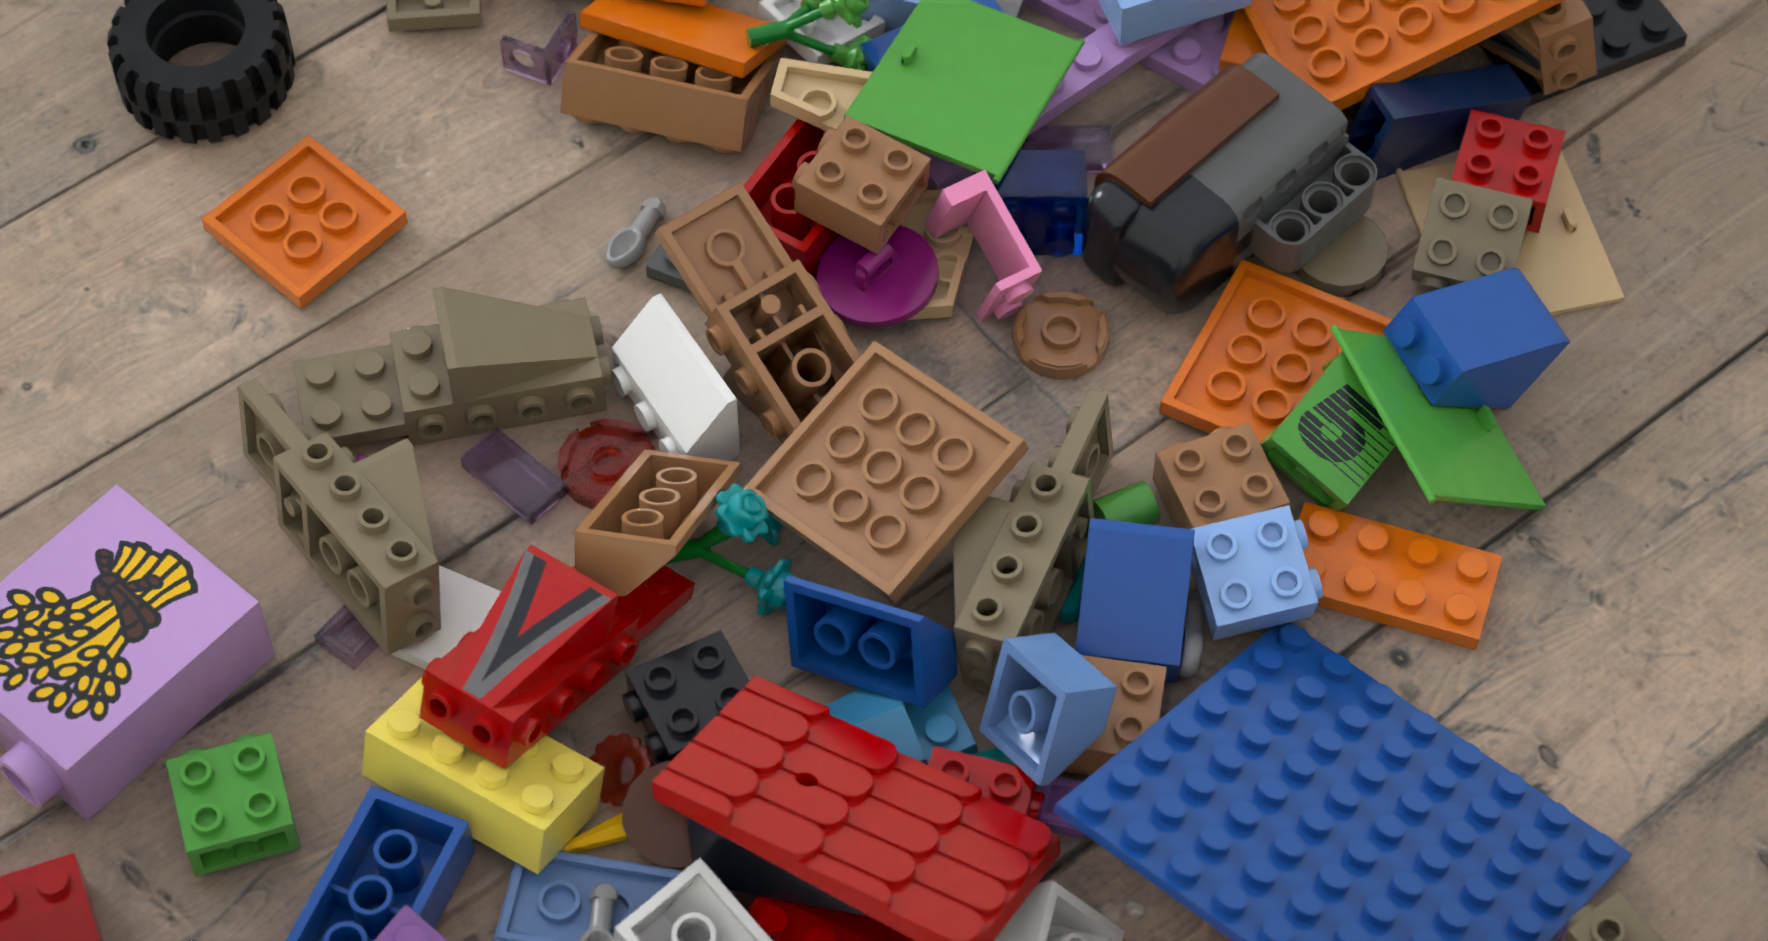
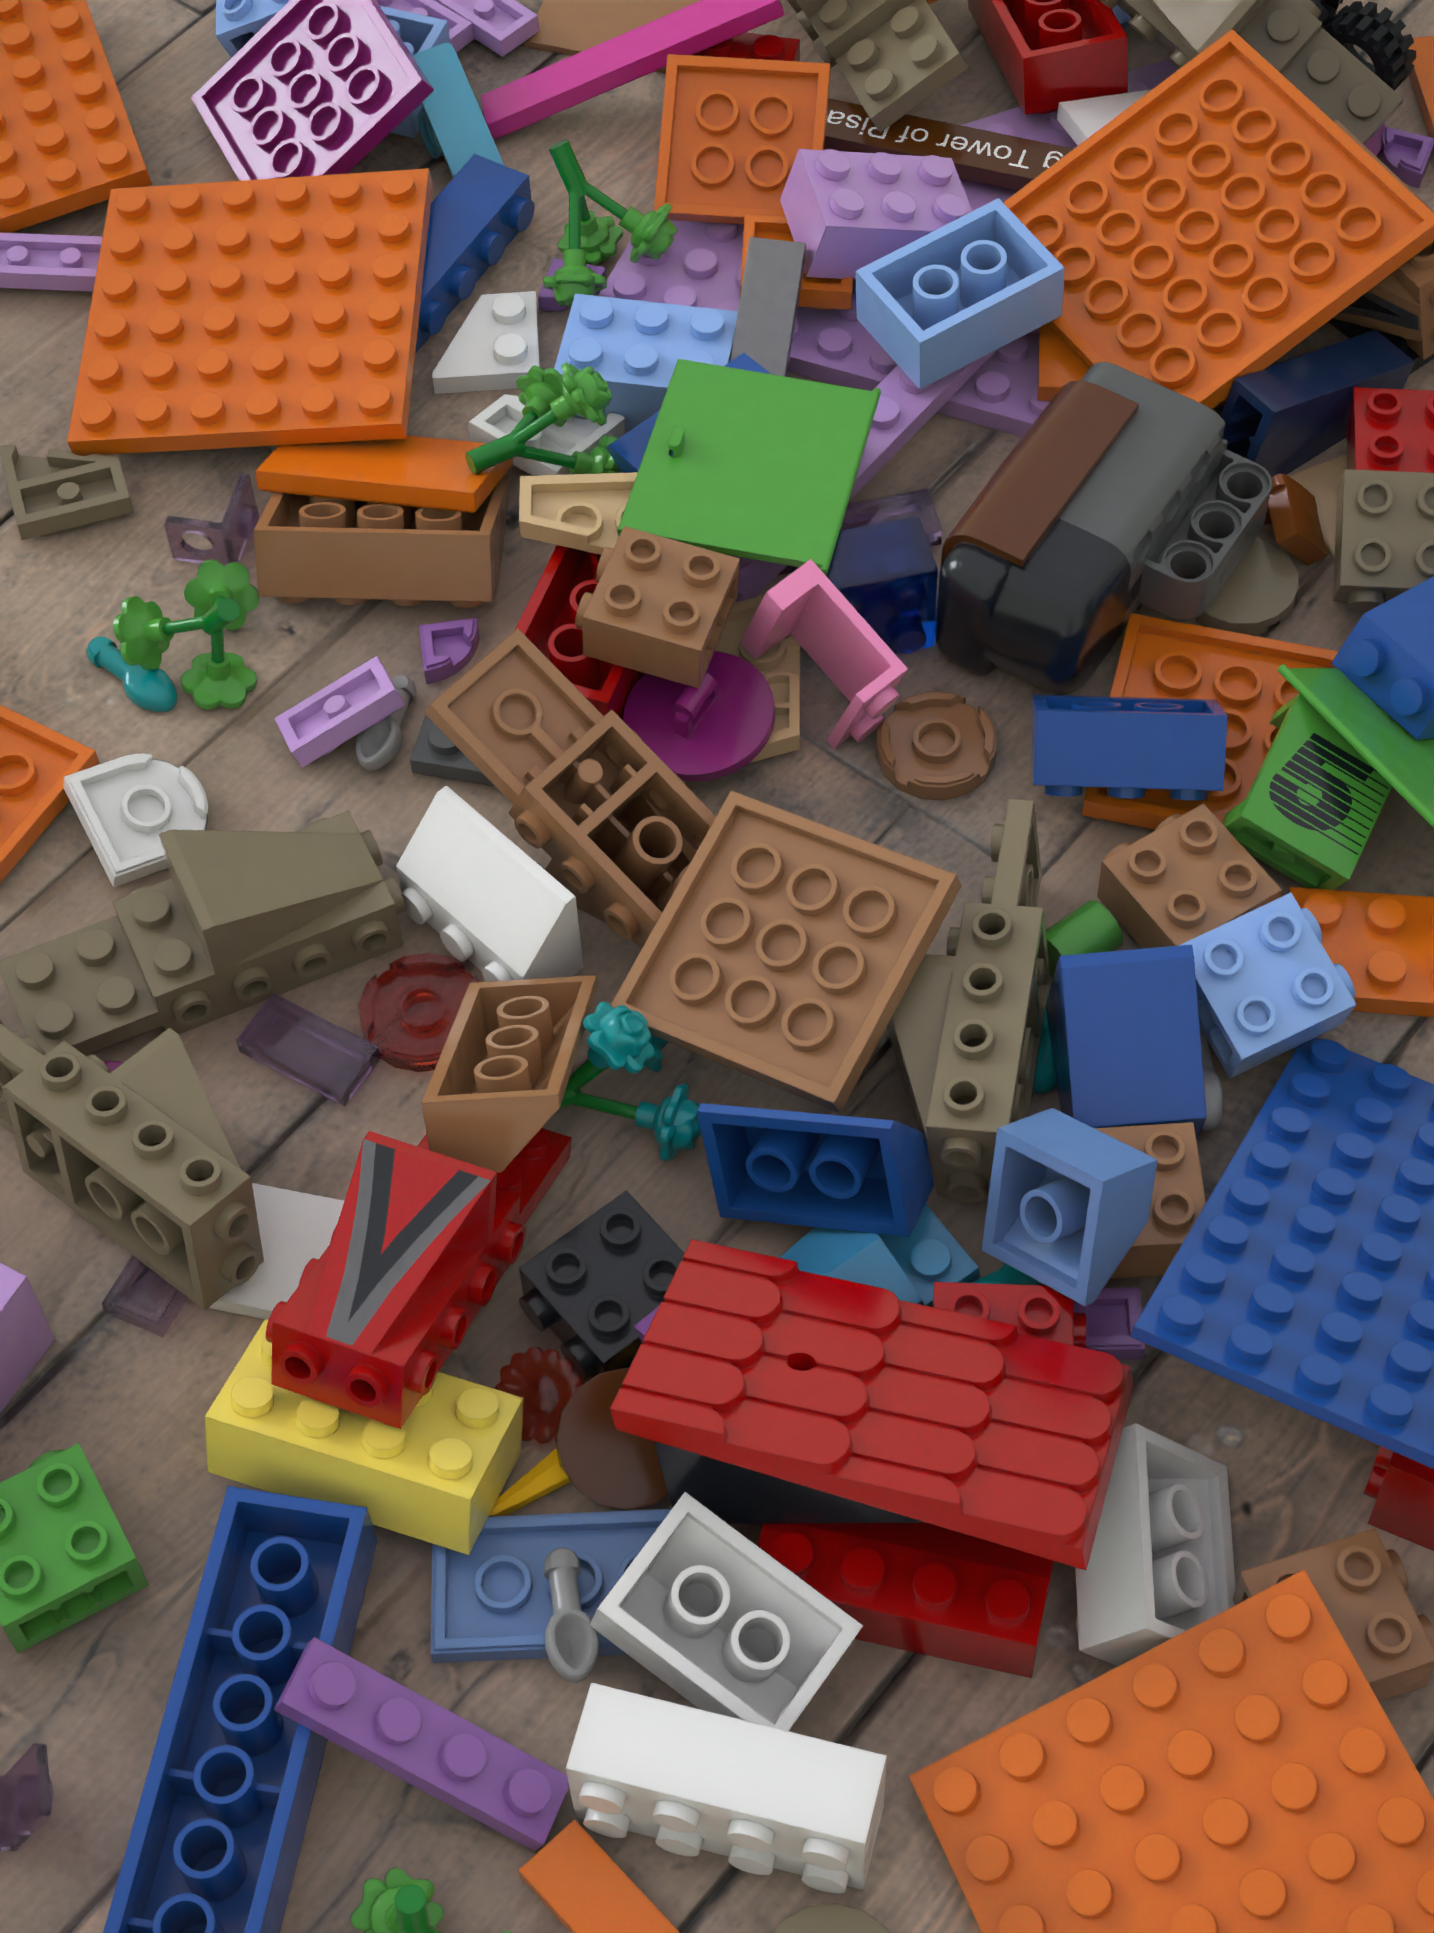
camera: 10 degrees left, 0 degrees up
(424, 258) = (129, 805): none -> white tile
(456, 164) = (145, 688): none -> teal piece
(530, 110) = (220, 603): none -> bright green plant
(600, 217) = (339, 712): none -> lavender plate
(699, 181) = (447, 647): none -> medium lavender tile
(1202, 364) = (1128, 745): none -> blue slope
(1397, 207) = (1295, 520): none -> dark orange tile

